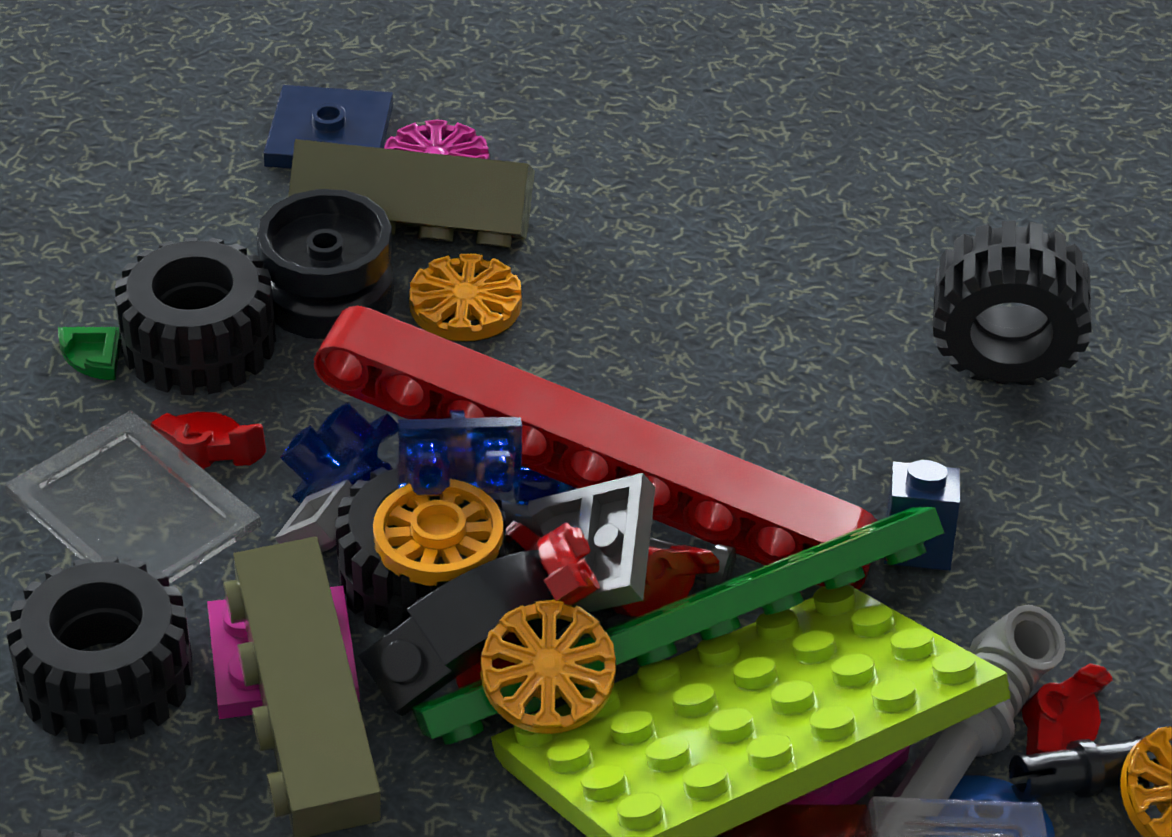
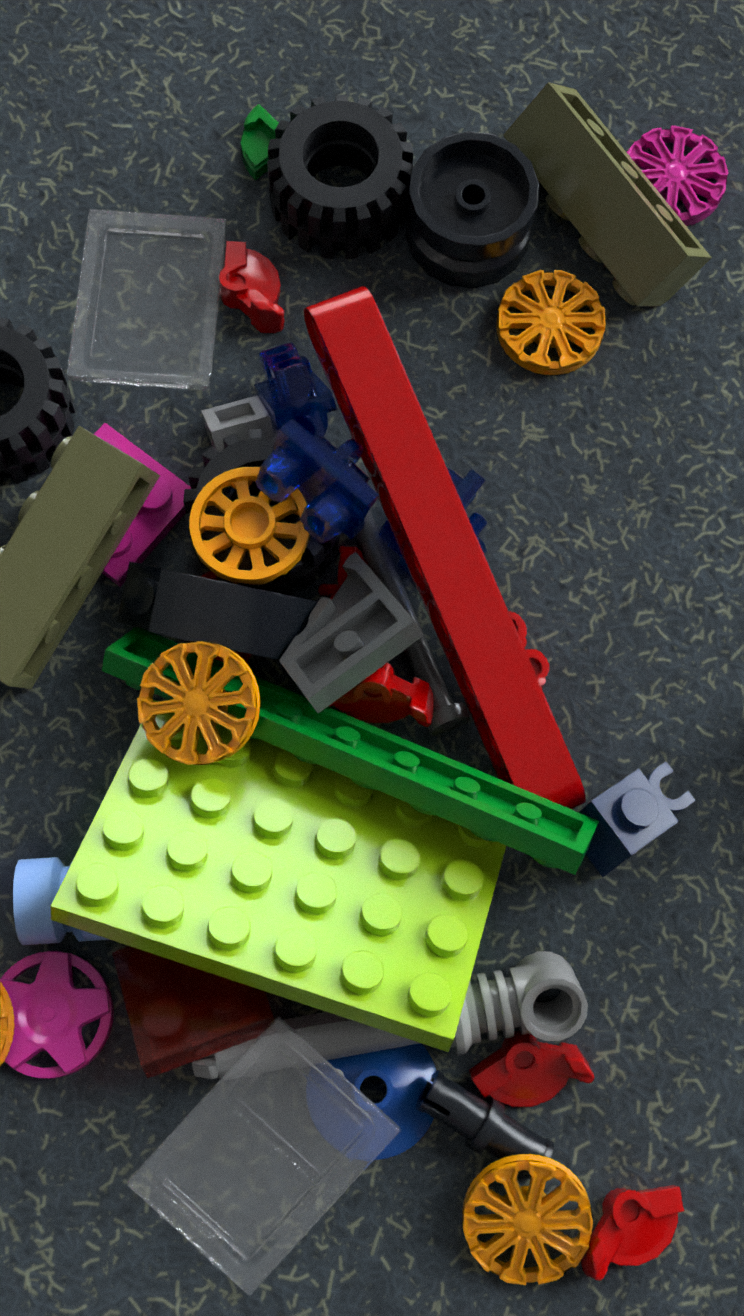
camera: 45 degrees right, 30 degrees up
(326, 116) = (633, 78): dark blue plate -> none
(560, 555) = (282, 639): red piece -> none

